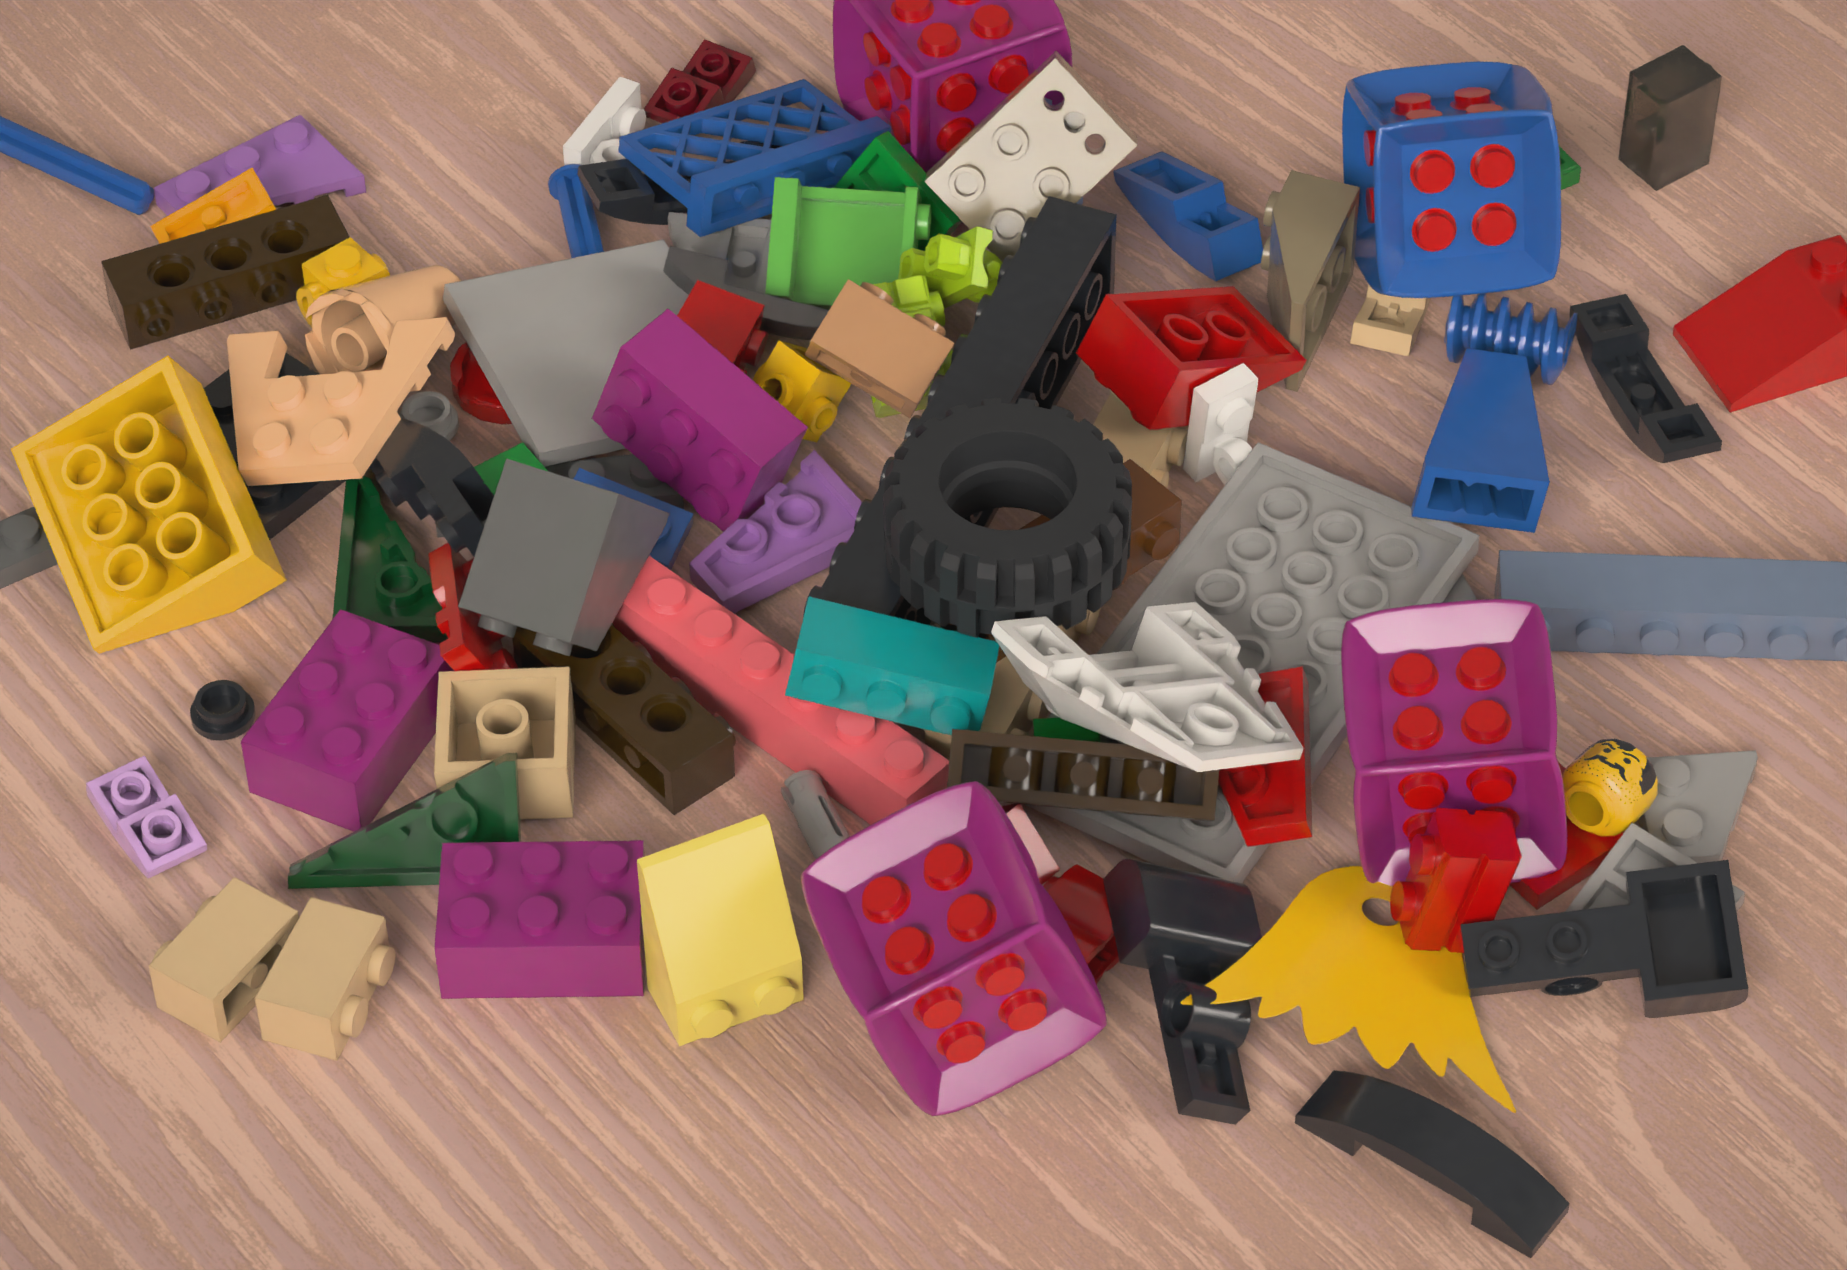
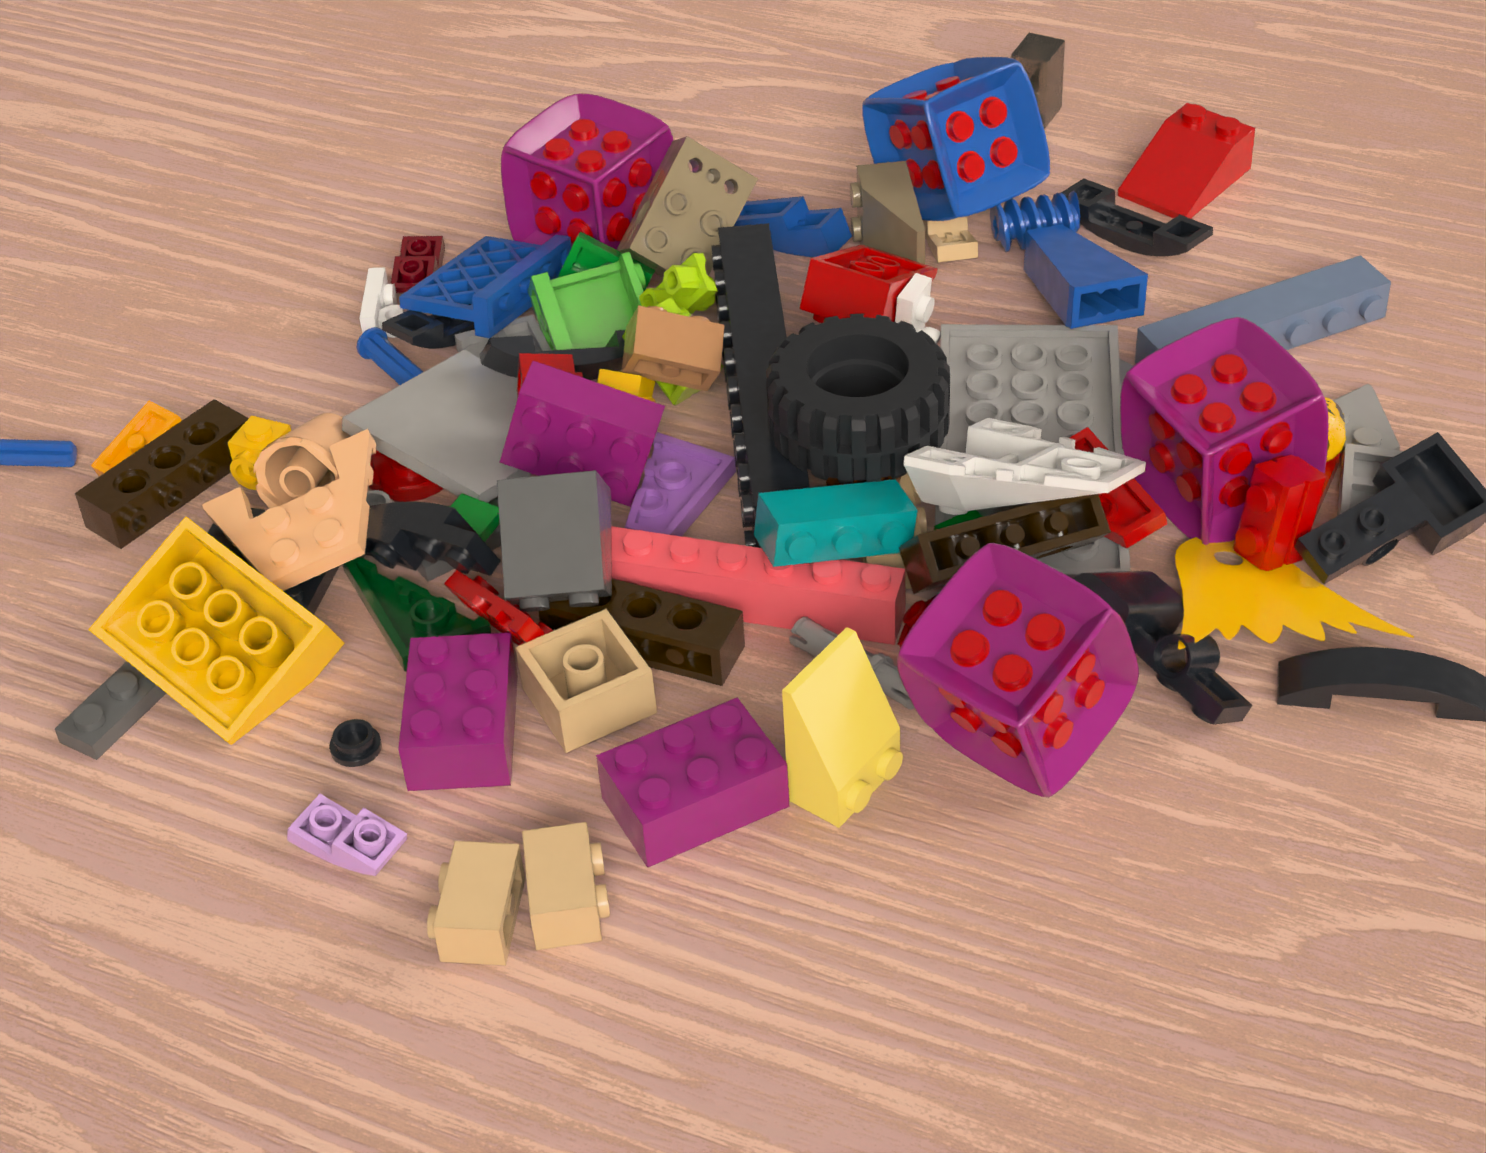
camera: 25 degrees left, 5 degrees down
(288, 159) = (167, 389): medium lavender wing -> none
(408, 842) = (568, 763): dark green wing -> none

